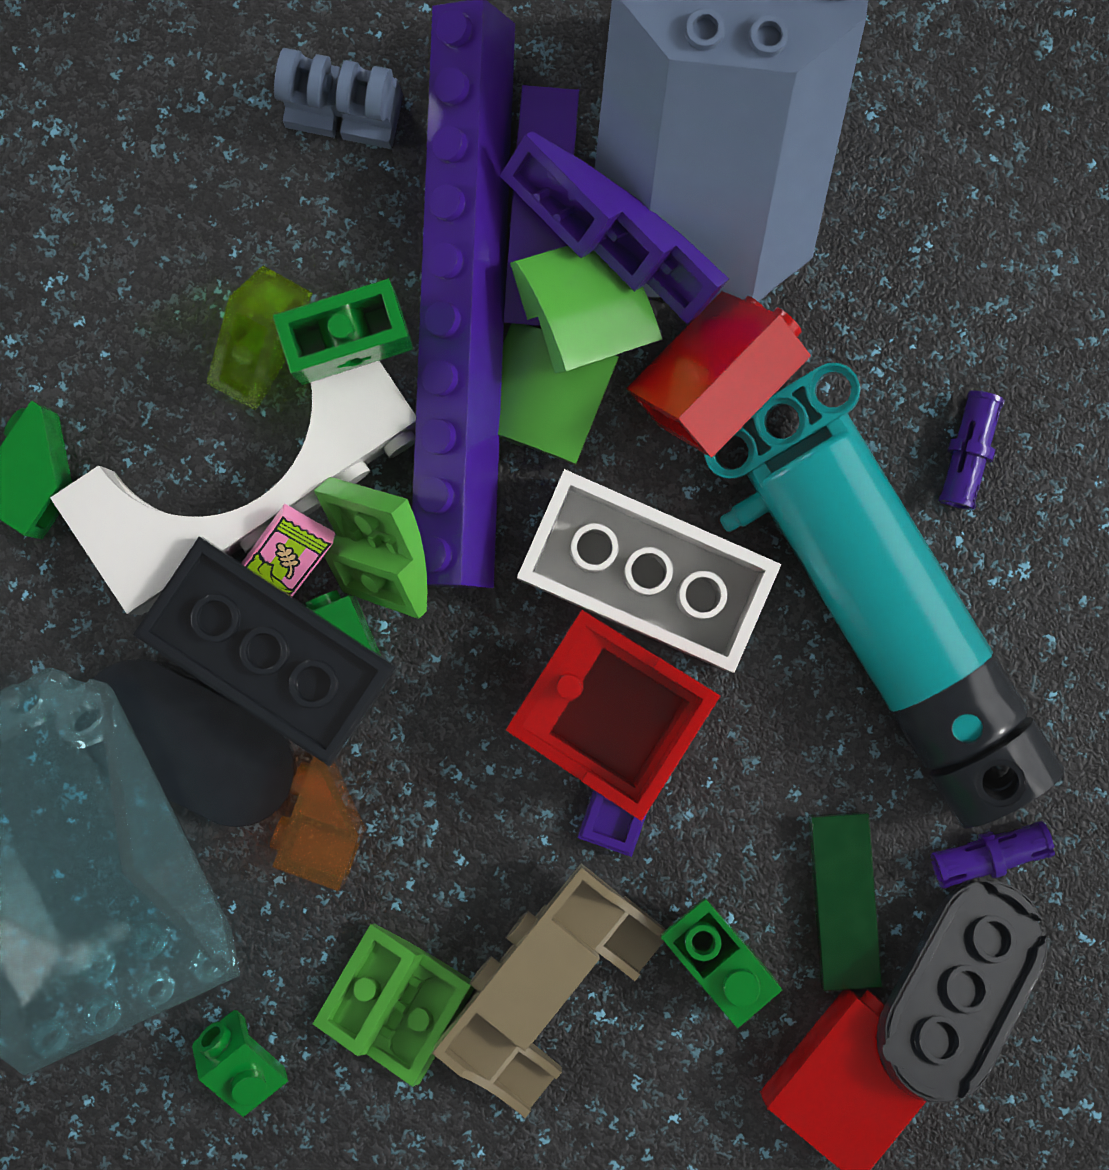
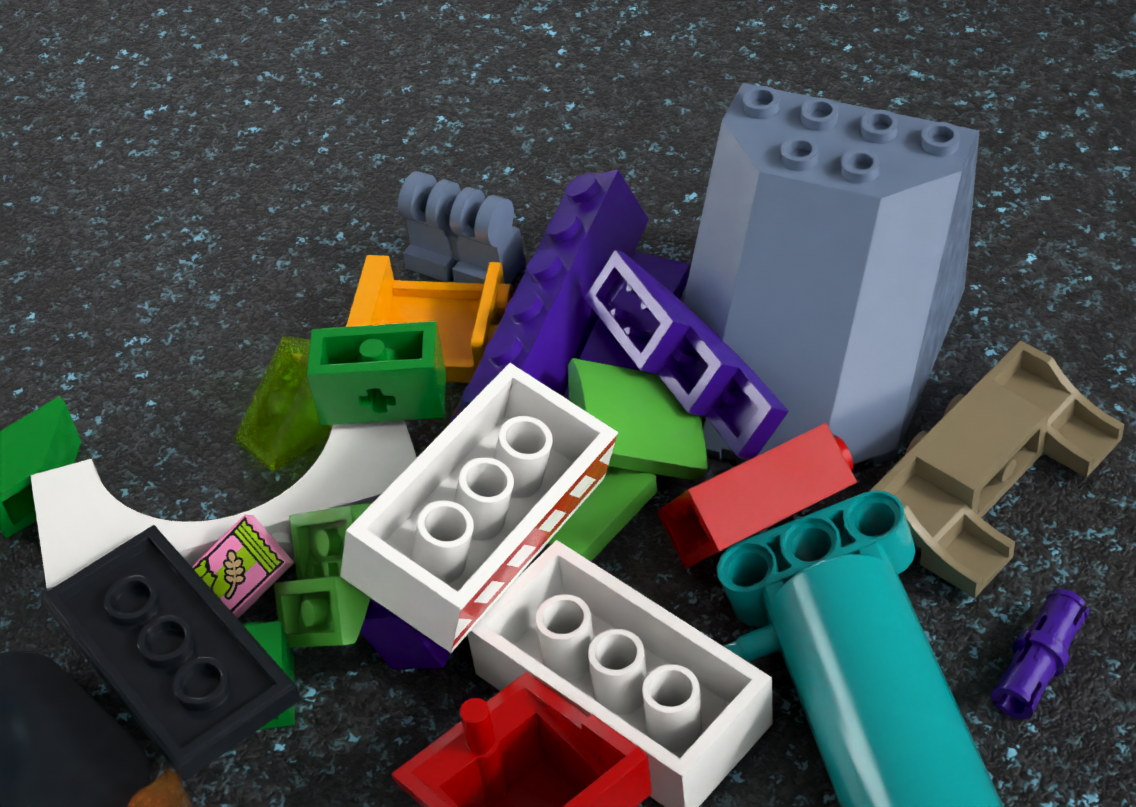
camera: 20 degrees right, 40 degrees down
(342, 208) = (463, 311): none -> light orange panel
(503, 474) = (477, 506): none -> white brick
(899, 241) = (982, 450): none -> dark tan bracket

